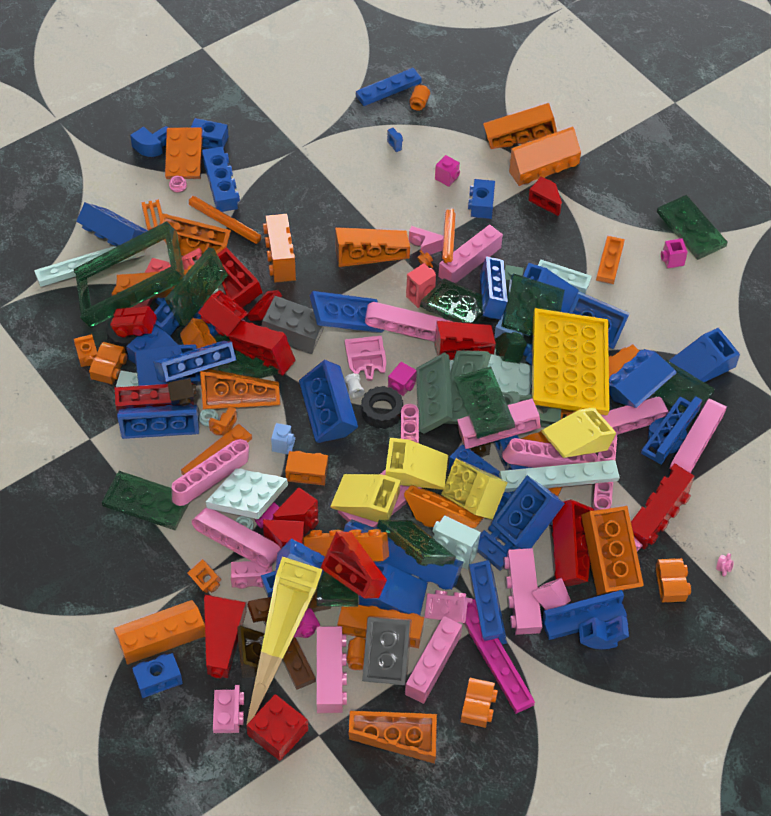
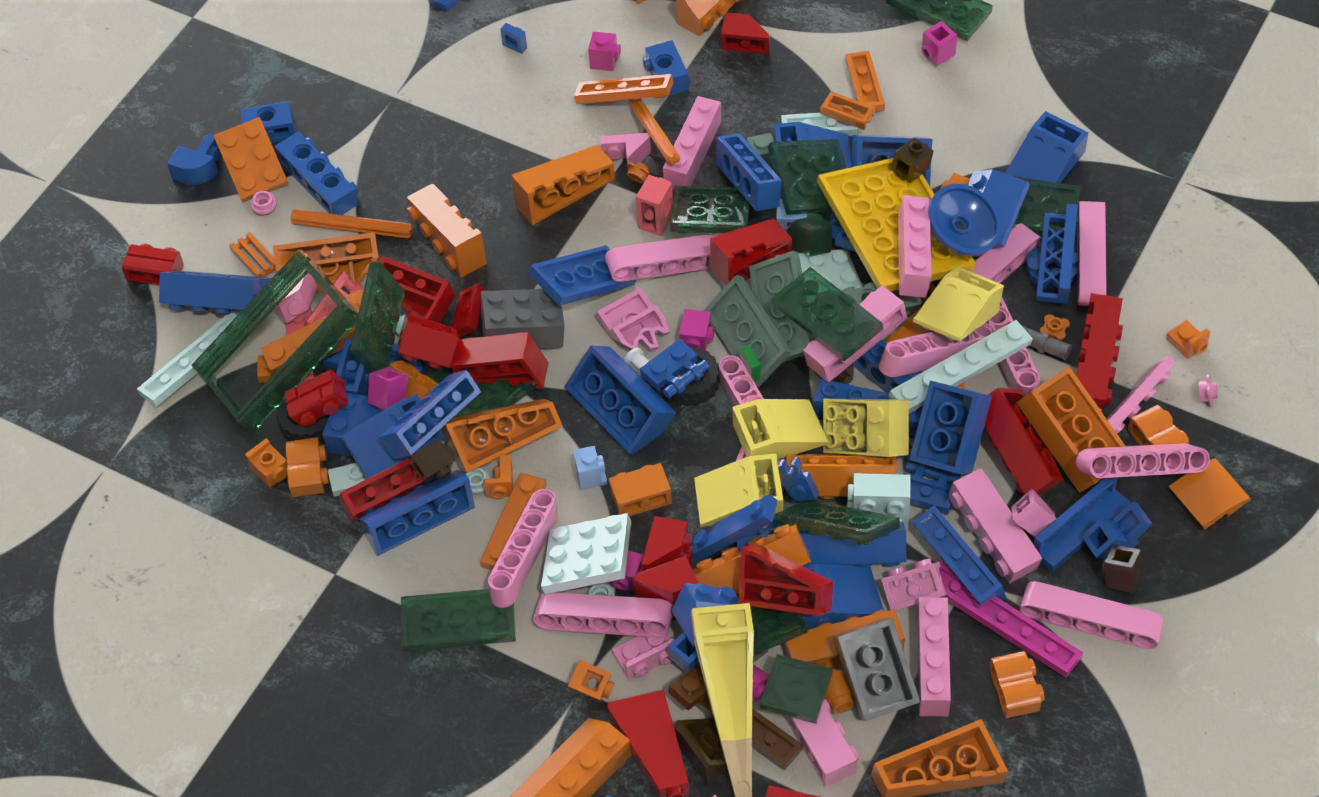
camera: 20 degrees left, 0 degrees up
(85, 191) = (146, 262): none -> red brick
(156, 253) = (297, 300): none -> bright pink slope
(180, 332) = (386, 388): none -> dark pink brick
(329, 639) = (796, 688): none -> clear green tile
(347, 516) = (734, 527): none -> blue plate
(371, 393) = (669, 364): none -> blue plate
(407, 507) = (797, 484): none -> blue plate
(422, 414) = (751, 362): none -> green tile
(446, 201) = (623, 89): none -> orange plate
(556, 680) = (1092, 615): none -> bright pink beam
(569, 381) = (914, 247): none -> bright pink brick
(583, 274) = (845, 113): none -> orange tile
(593, 658) = (1122, 568): none -> dark brown brick
(604, 323) = (912, 160): none -> dark brown brick
(621, 372) = (969, 211): none -> blue dish
(631, 484) = (1046, 343): none -> flat silver pin
(640, 480) = (1061, 324): none -> orange plate
(652, 598) = (1132, 457): none -> bright pink beam
(679, 545) = (1142, 391): none -> bright pink plate
(685, 634) = (1209, 494): none -> orange slope
(733, 524) = (1188, 339): none -> orange bracket

